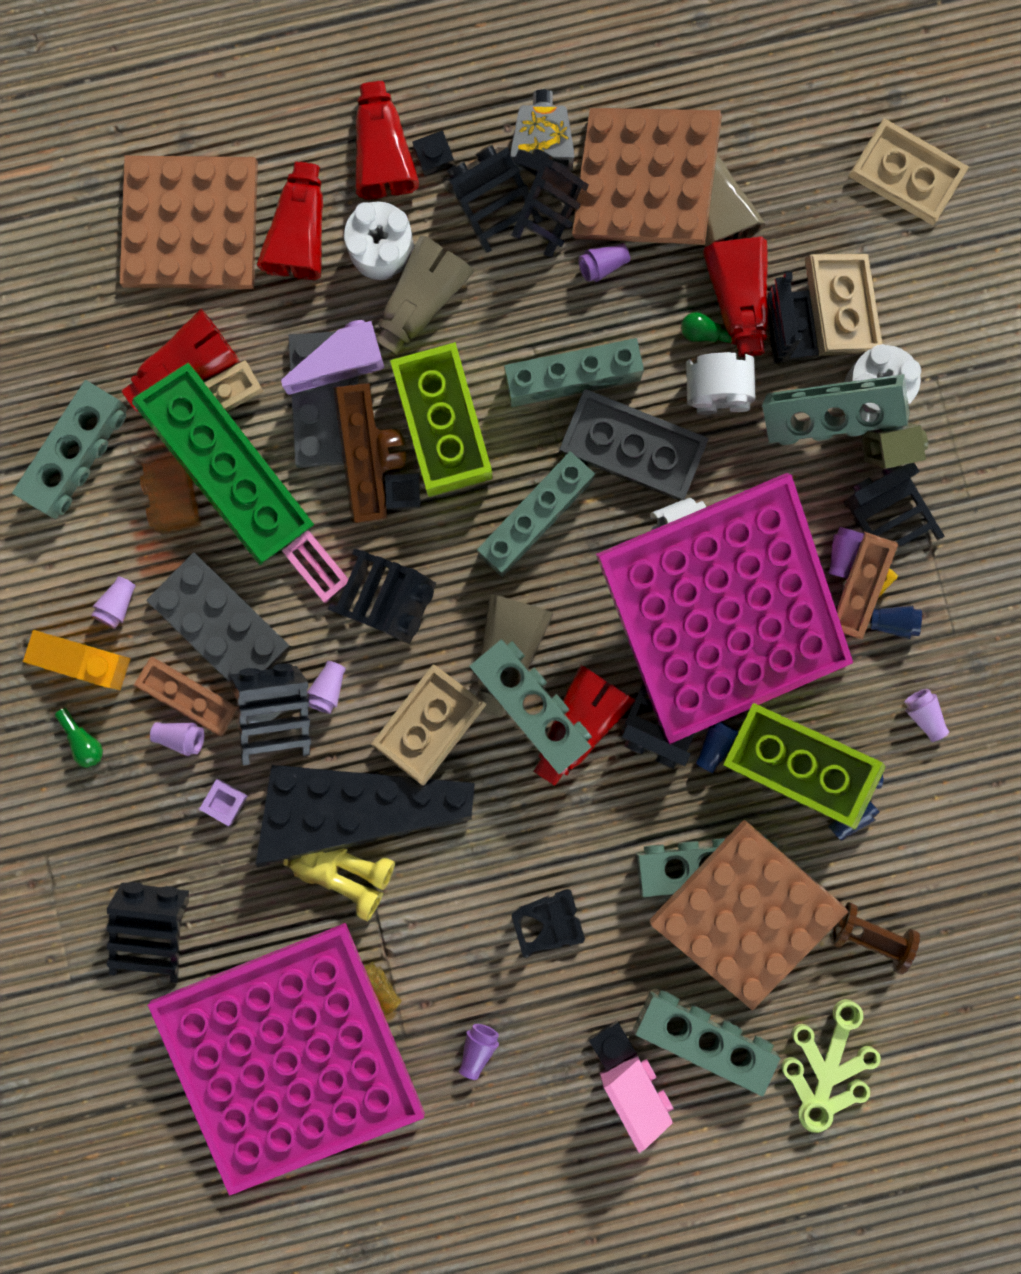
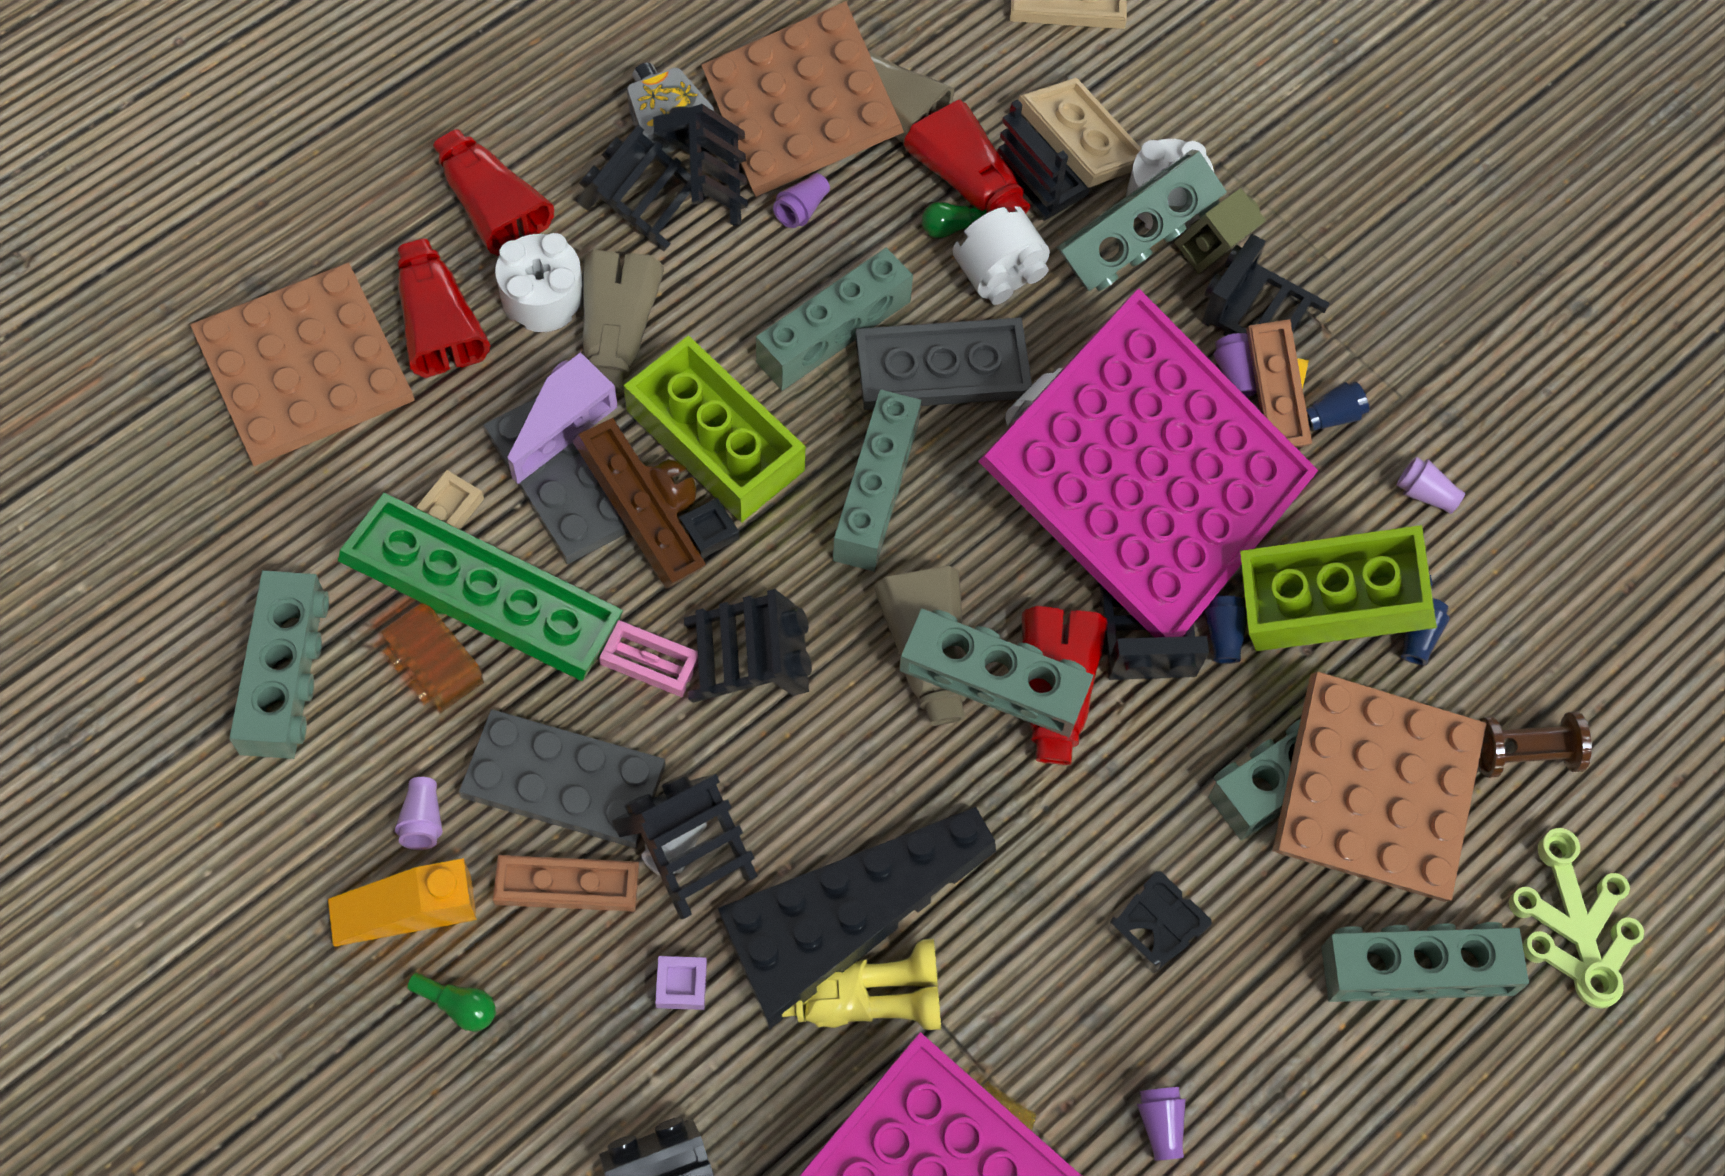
camera: 35 degrees left, 20 degrees down
(180, 737) = (583, 932): lavender cone -> none
(194, 343) = (375, 471): red piece -> none
(326, 688) = (739, 784): lavender cone -> none
(428, 724) = (883, 766): tan tile -> none
(433, 153) = (552, 177): black plate -> none
(611, 1045) = (1317, 1031): black plate -> none
(637, 1101) = (1386, 1073): bright pink slope -> none

